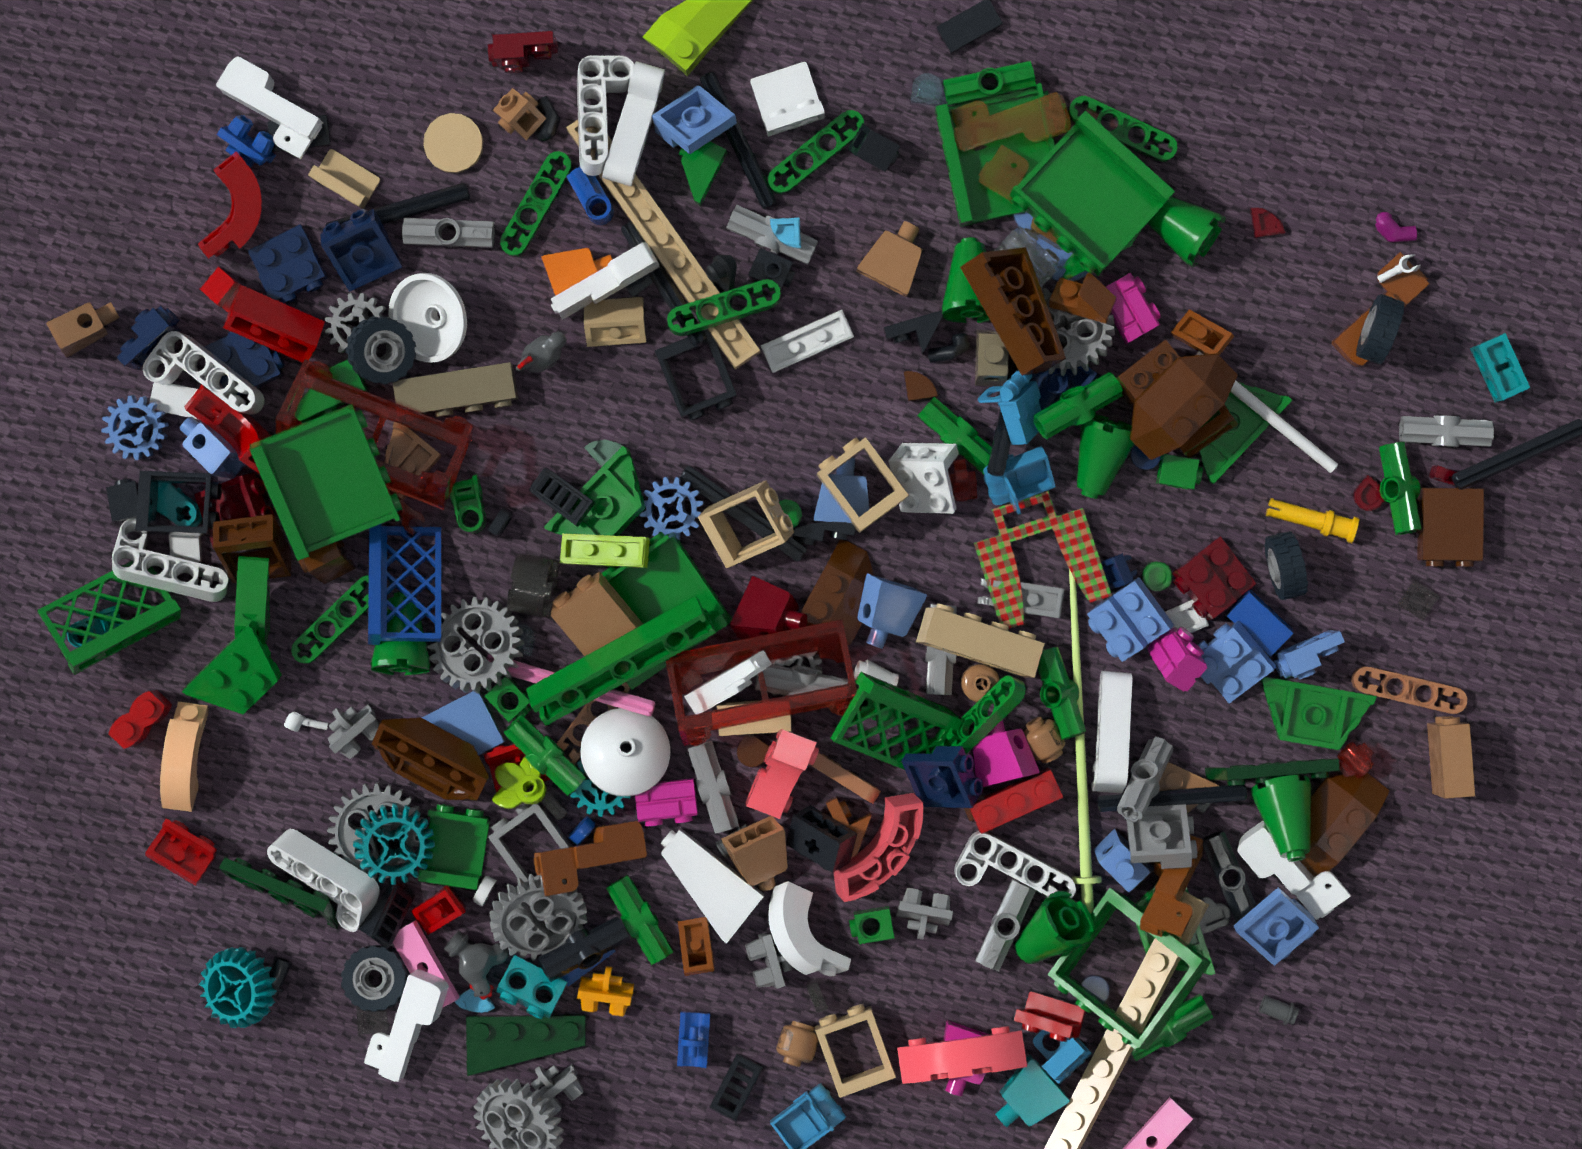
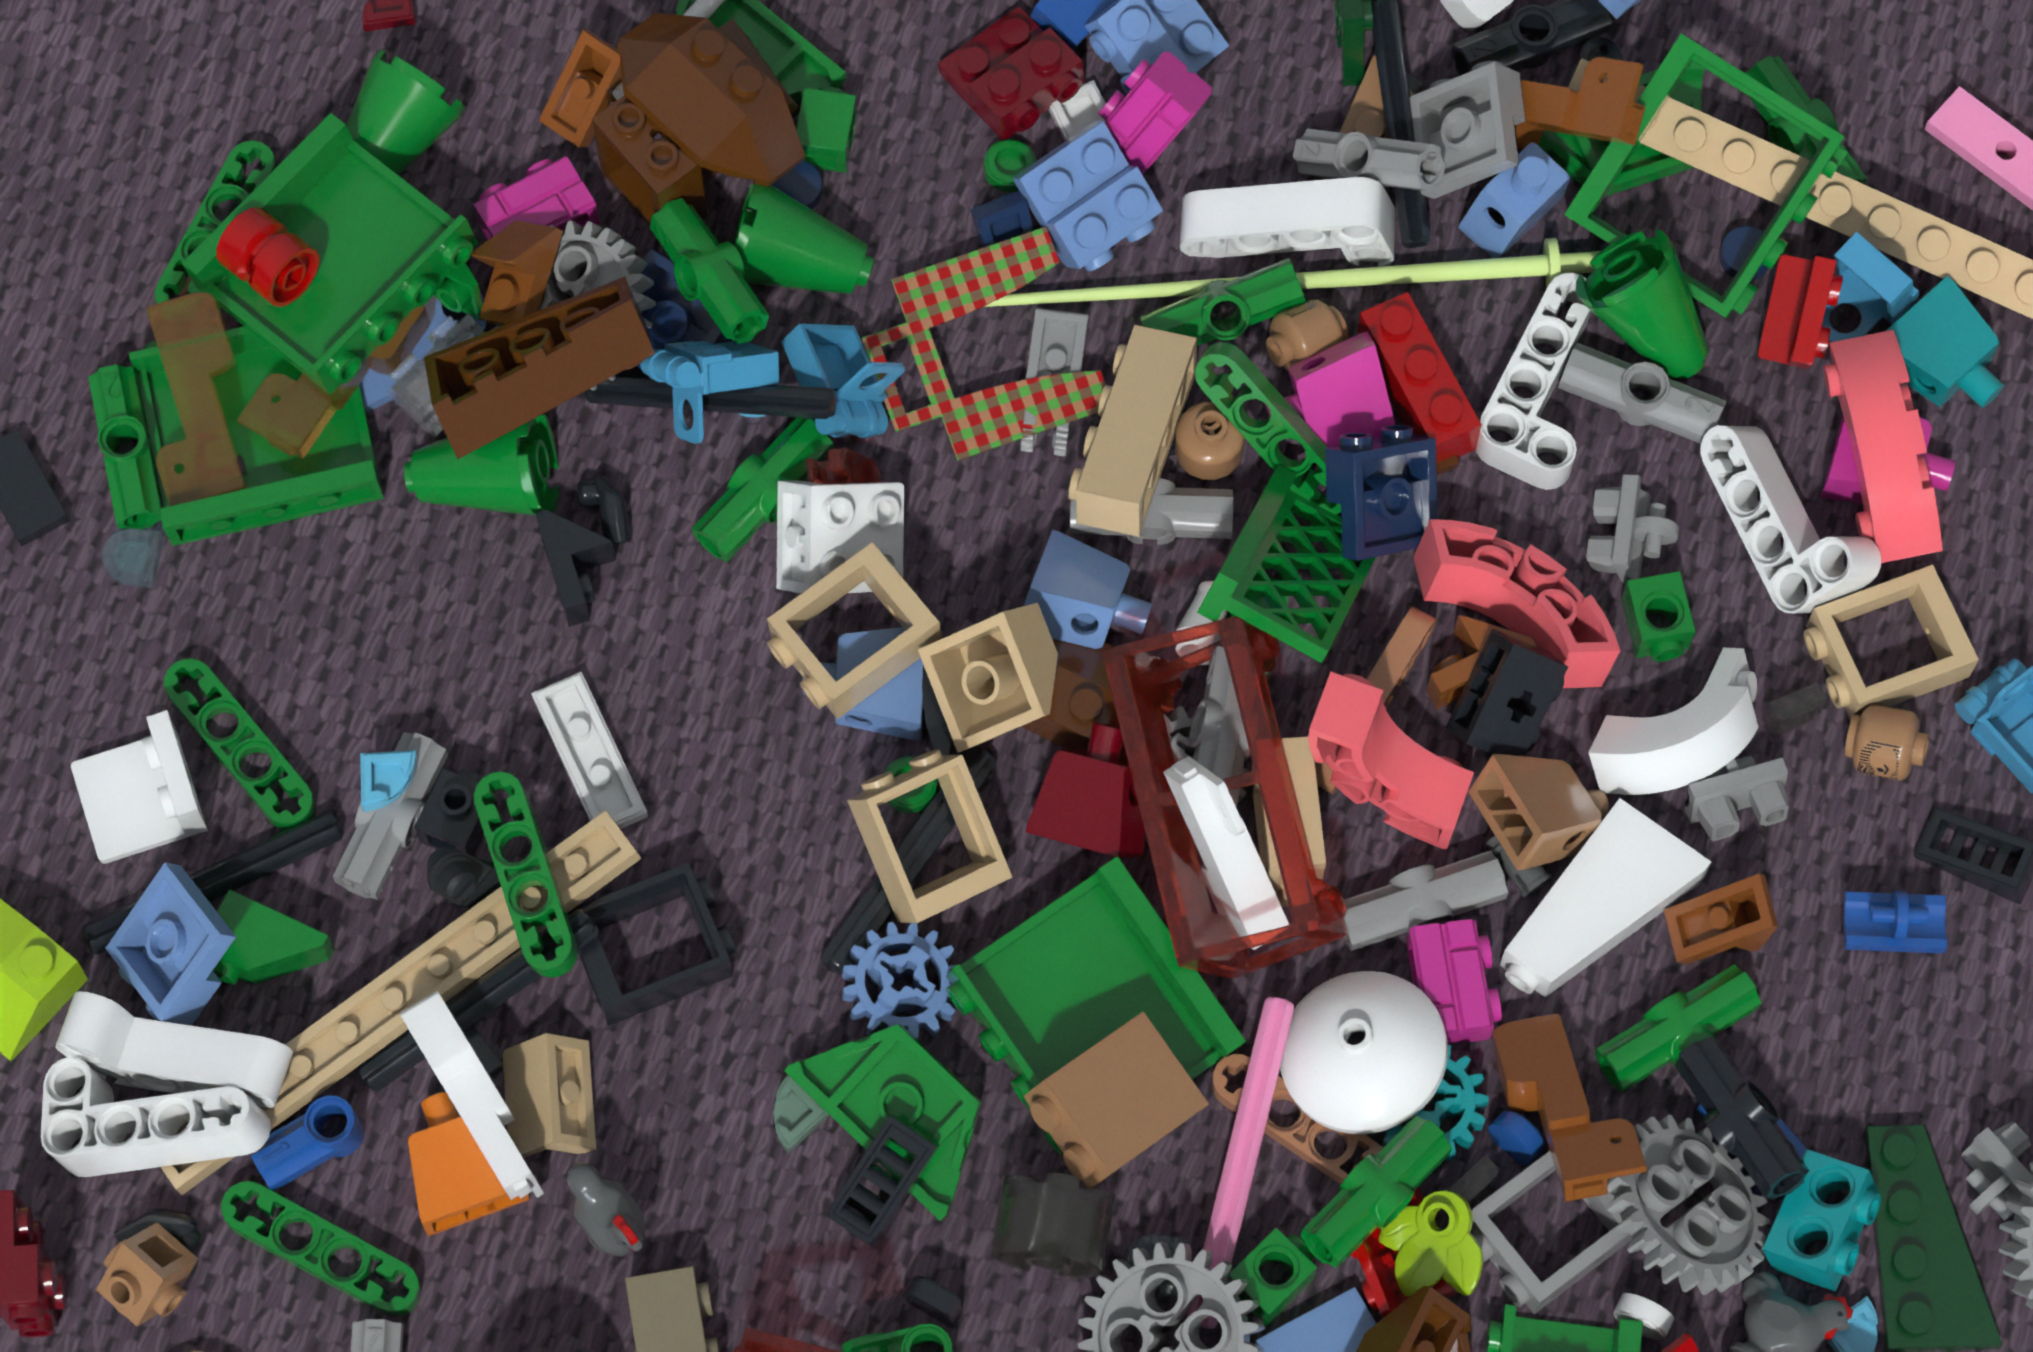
camera: 90 degrees left, 20 degrees down
(604, 550) = (984, 1089): lime tile -> none
(605, 989) = (1813, 1087): light orange hips -> none
(620, 660) = (1192, 1047): green piece -> none
(751, 750) = (1351, 836): reddish brown tile -> none
(832, 560) = (993, 675): none -> tan slope
(874, 147) = (234, 635): black brick -> none
(893, 259) = (443, 602): medium nougat torso -> none
(918, 386) = (673, 562): reddish brown tile -> none
(922, 994) = (1740, 465): none -> white beam
(990, 359) = (622, 430): dark tan torso -> none
(1091, 154) = (267, 256): none -> red wheel

